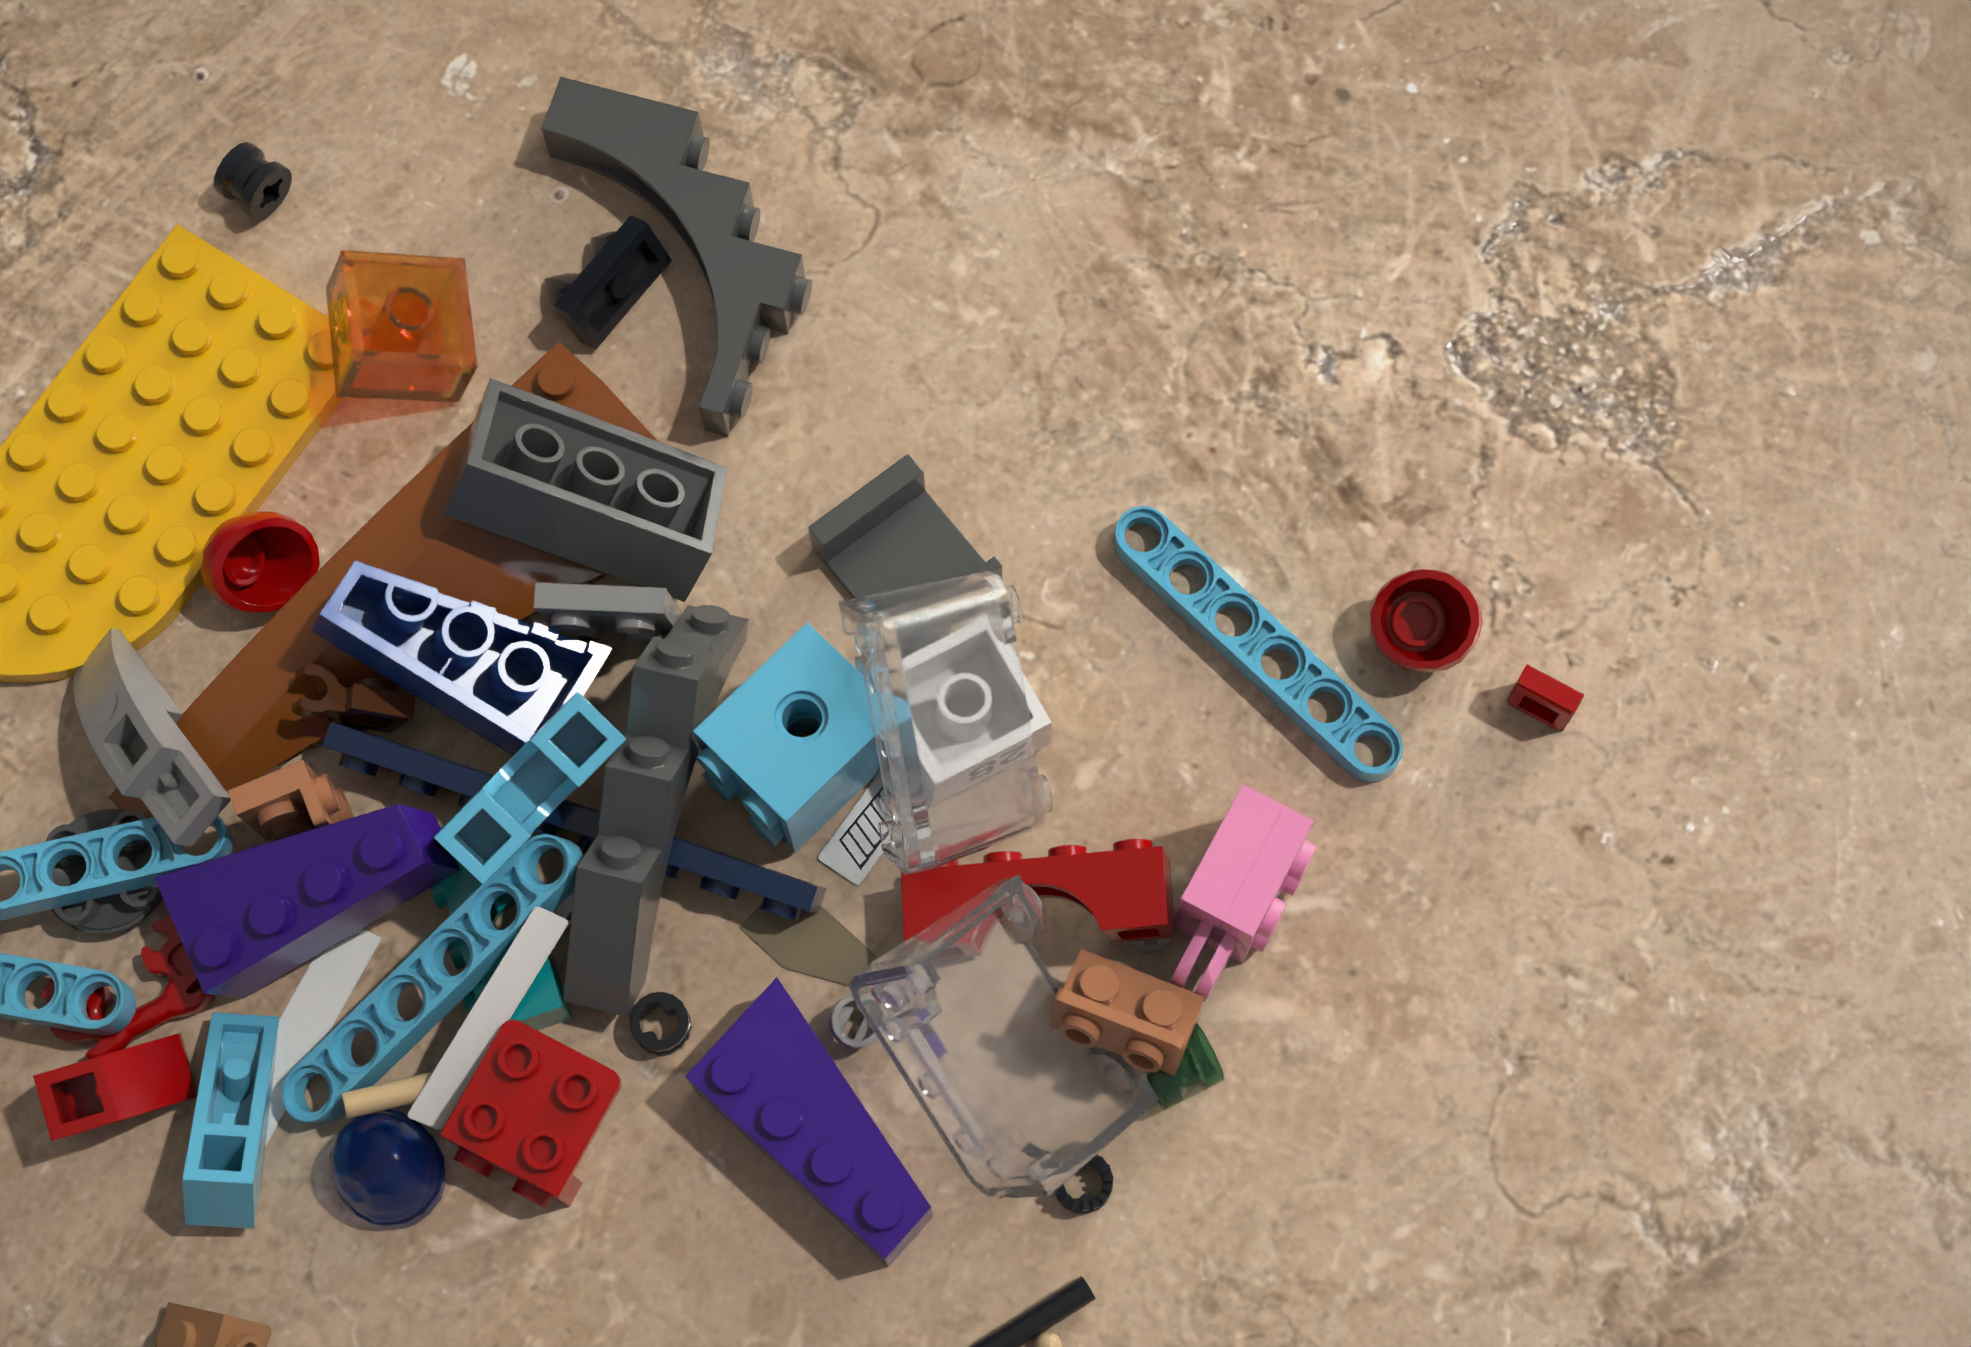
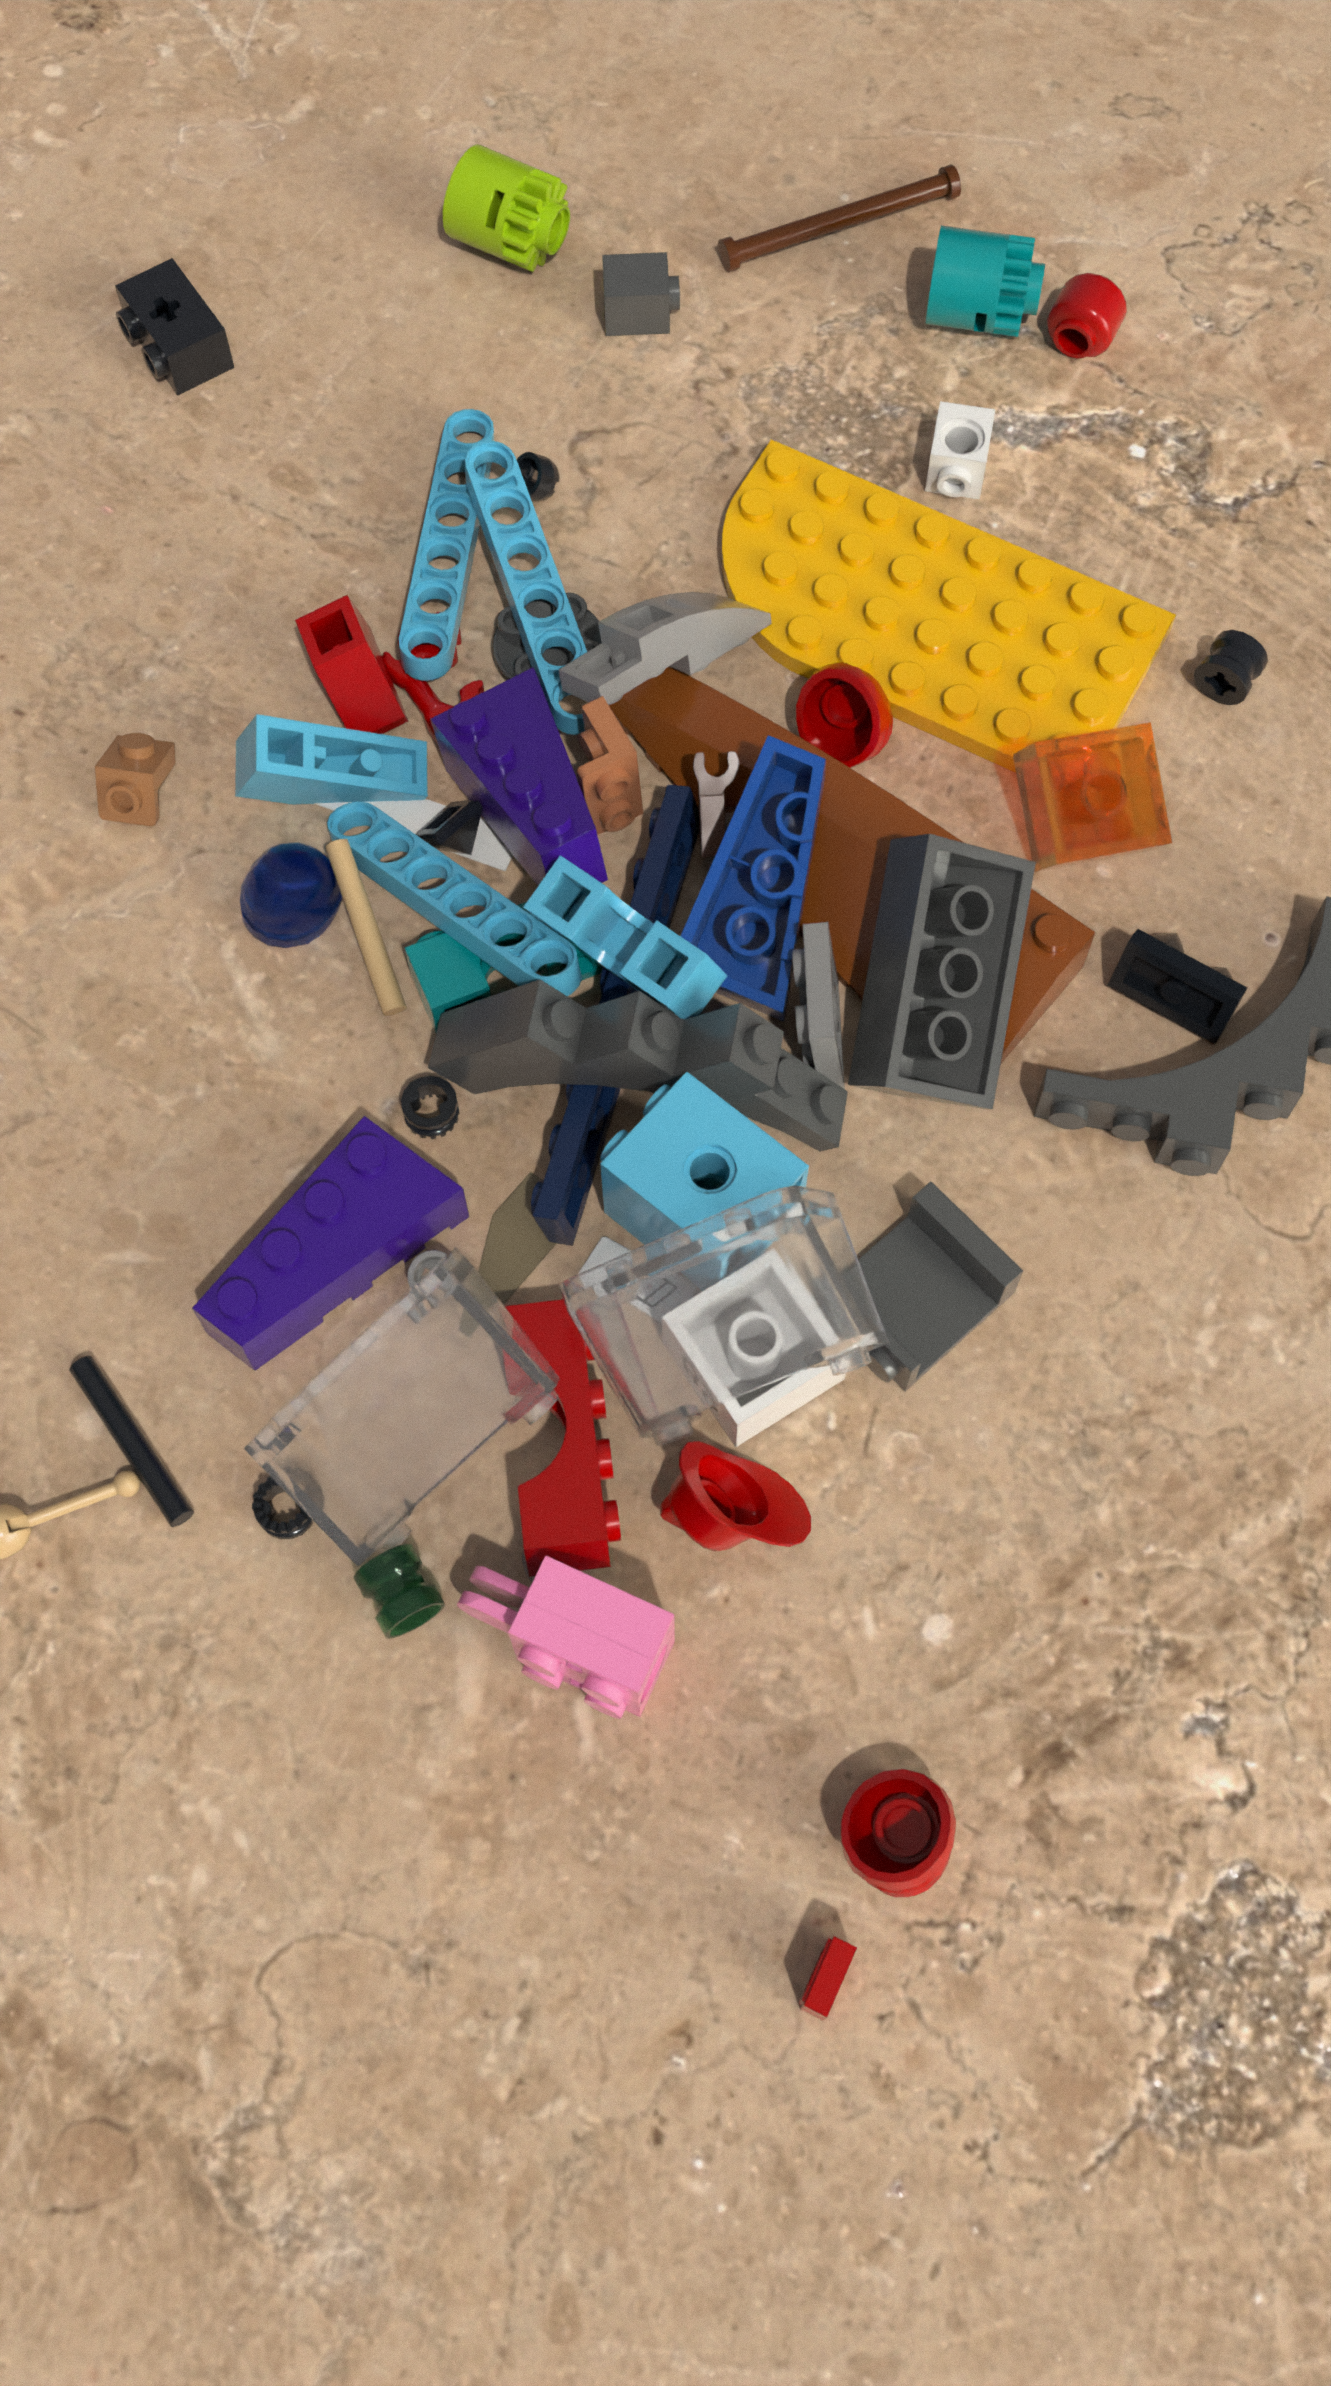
camera: 85 degrees right, 5 degrees down
(326, 987) = (454, 827): none -> black slope
(486, 1017) = (416, 944): white sticker -> none
(531, 1113) = (331, 995): red bracket -> none
(1113, 742) = (732, 1499): none -> red piece
(1126, 1013) = (440, 1524): nougat bracket -> none
(1263, 636) = (858, 1648): medium azure beam -> none

